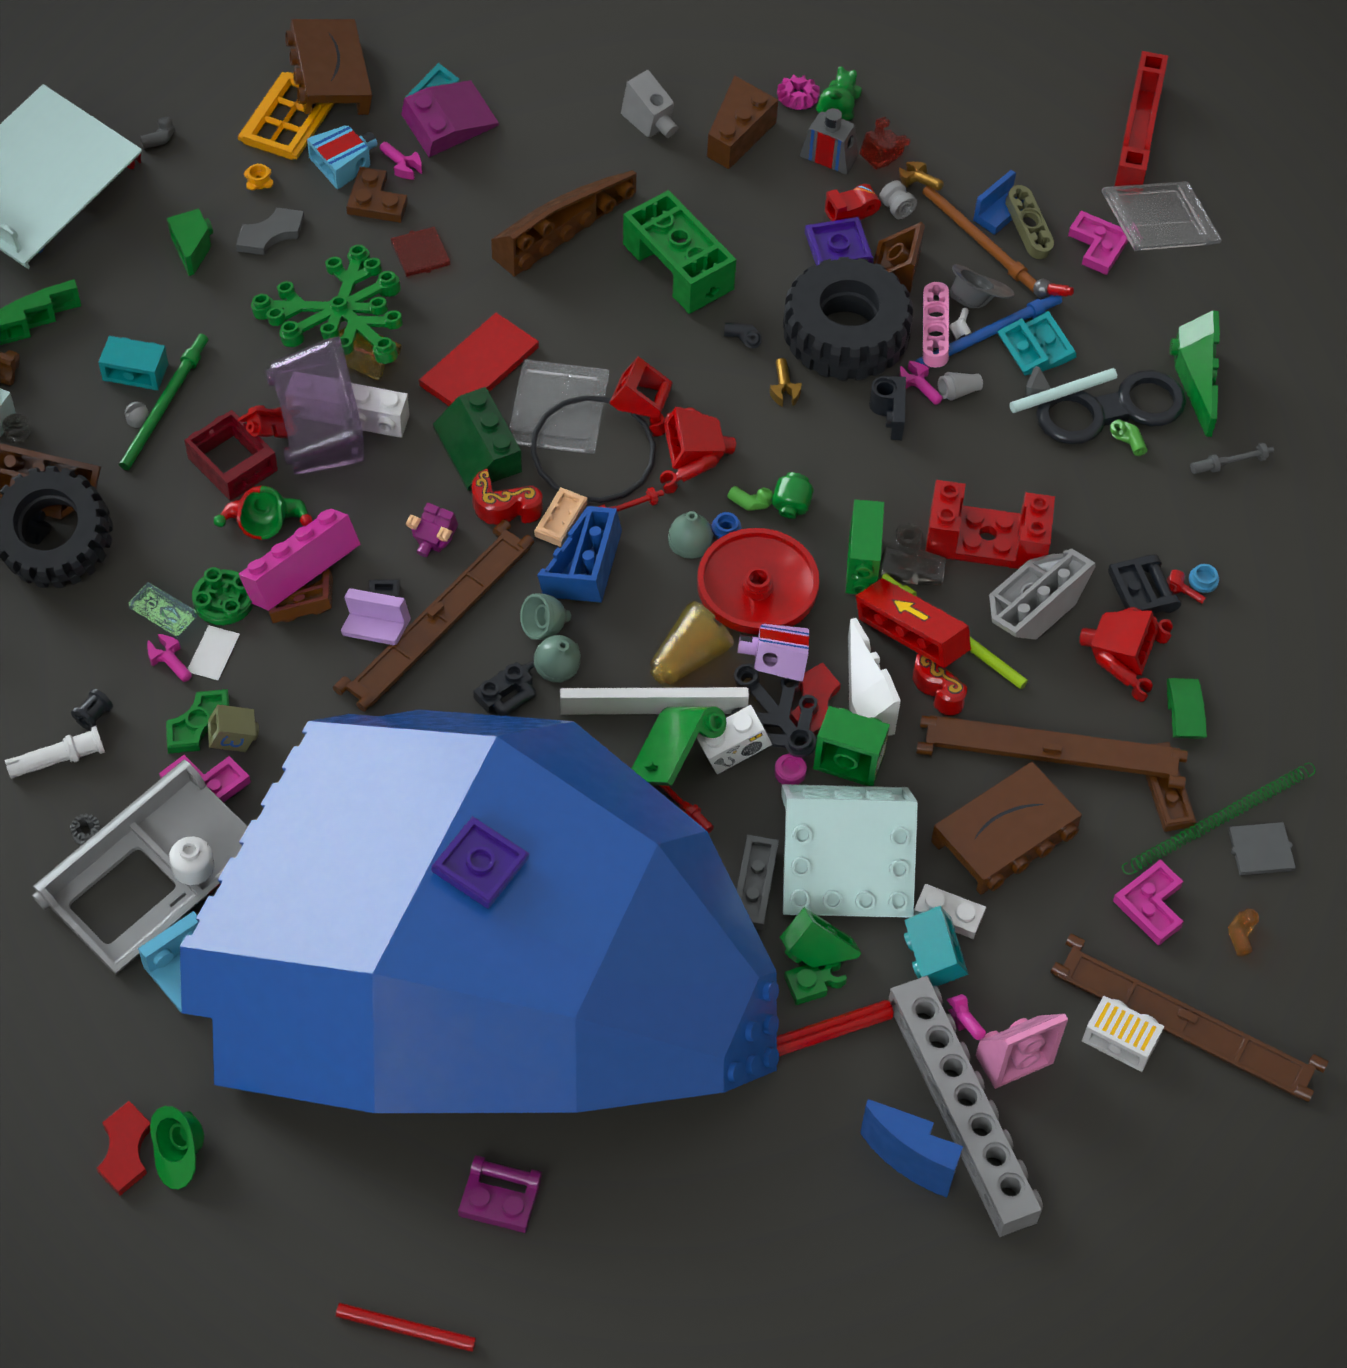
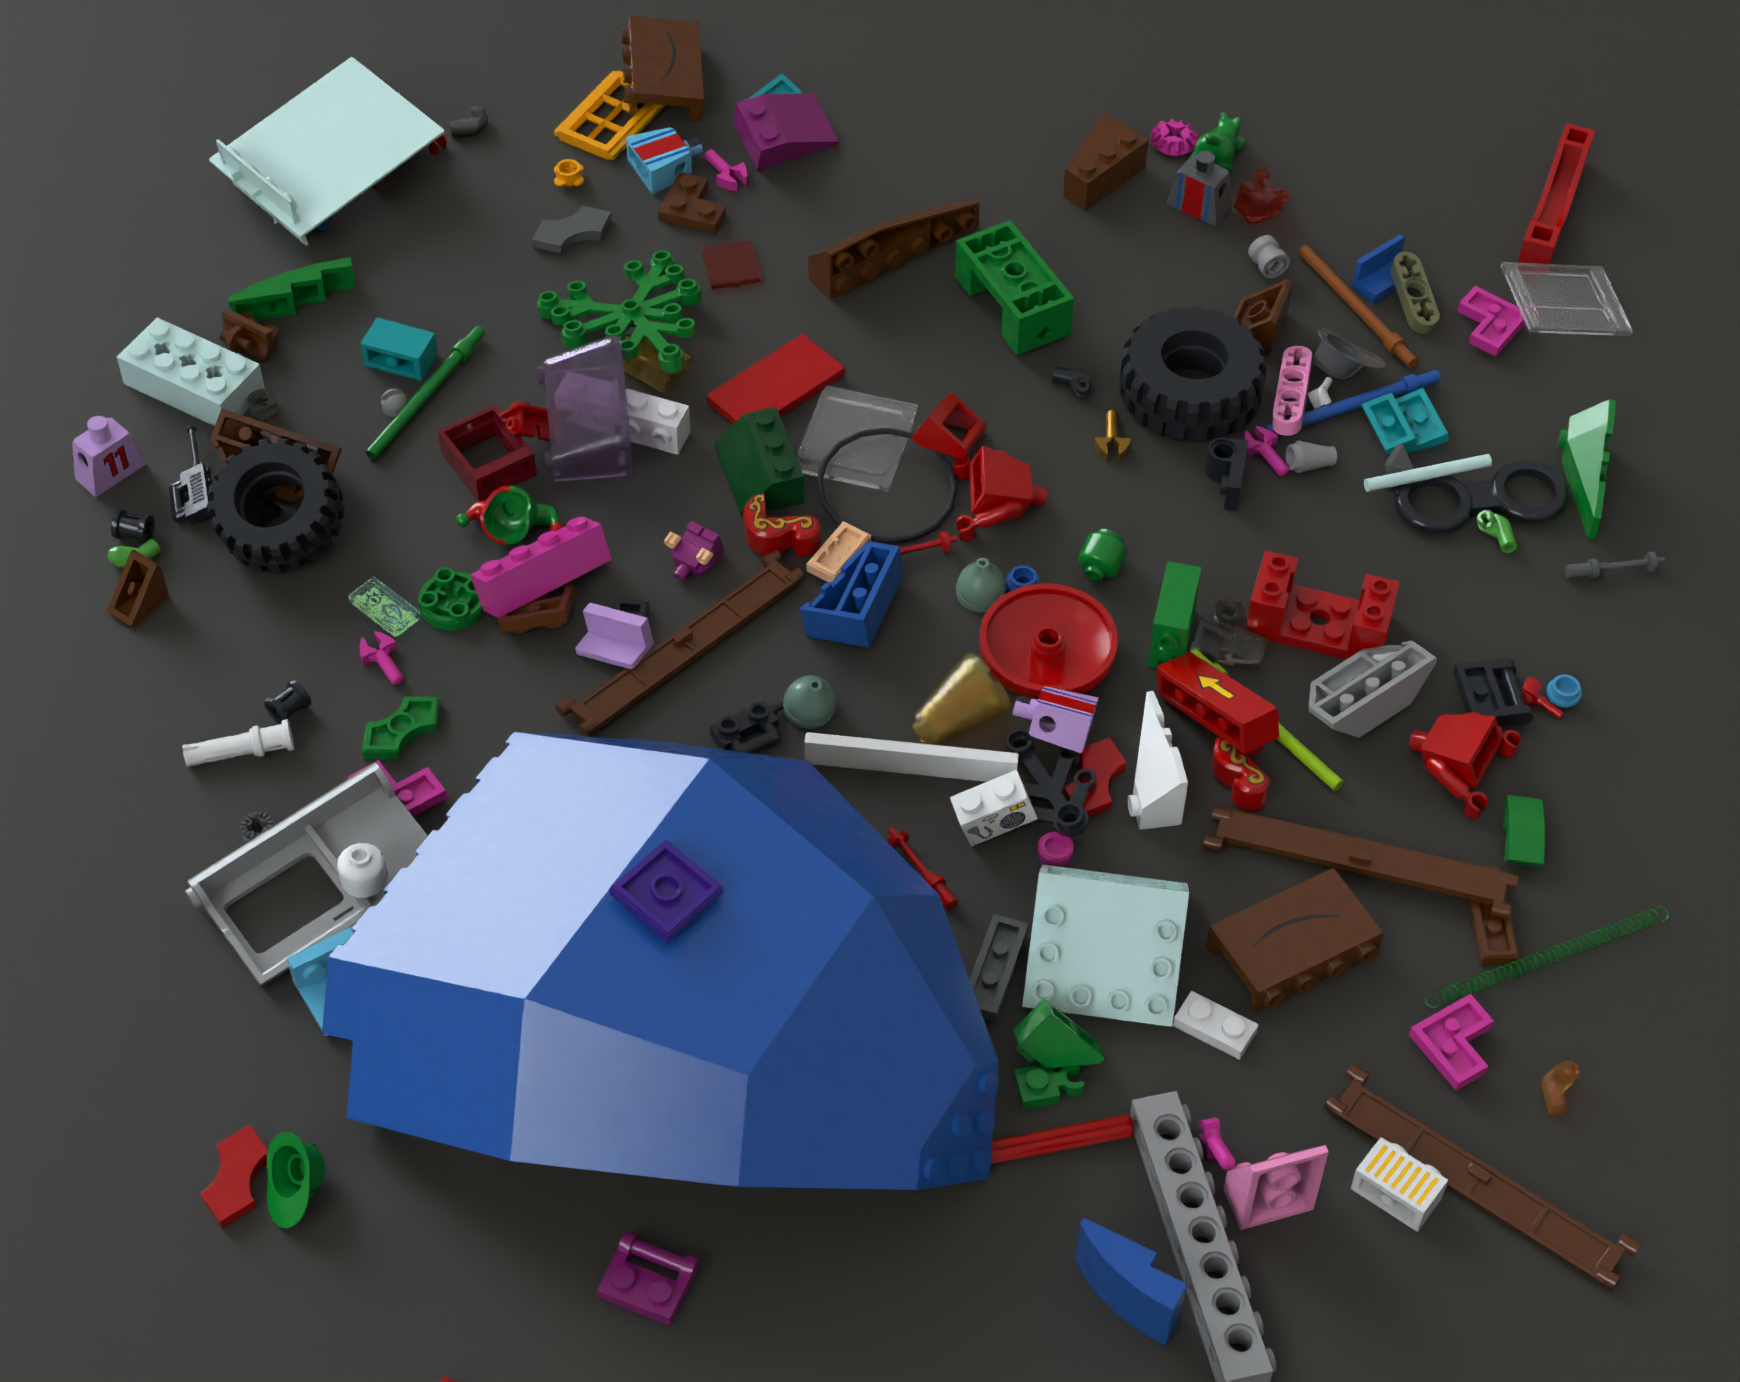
camera: 10 degrees right, 5 degrees down
(191, 238) = (484, 228): green slope -> none
(213, 652) = (431, 658): white sticker -> none
(232, 728) = (436, 737): olive brick -> none
(543, 616) = (801, 654): sand green helmet -> none
(648, 106) = (1004, 135): light grey torso -> none
(673, 738) = (924, 797): green door -> none
(751, 502) = (1053, 558): bright green arm -> none
(838, 240) = (1195, 289): dark purple plate -> none
(851, 746) = (1126, 829): green brick -> none
(854, 203) = (1216, 257): red leg -> none
(917, 173) = (1296, 230): pearl gold bar -> none
(935, 946) = (1191, 1060): teal brick -> none
(1045, 288) = (1422, 363): piece -> none
(1261, 848) = (1593, 996): dark grey piece -> none

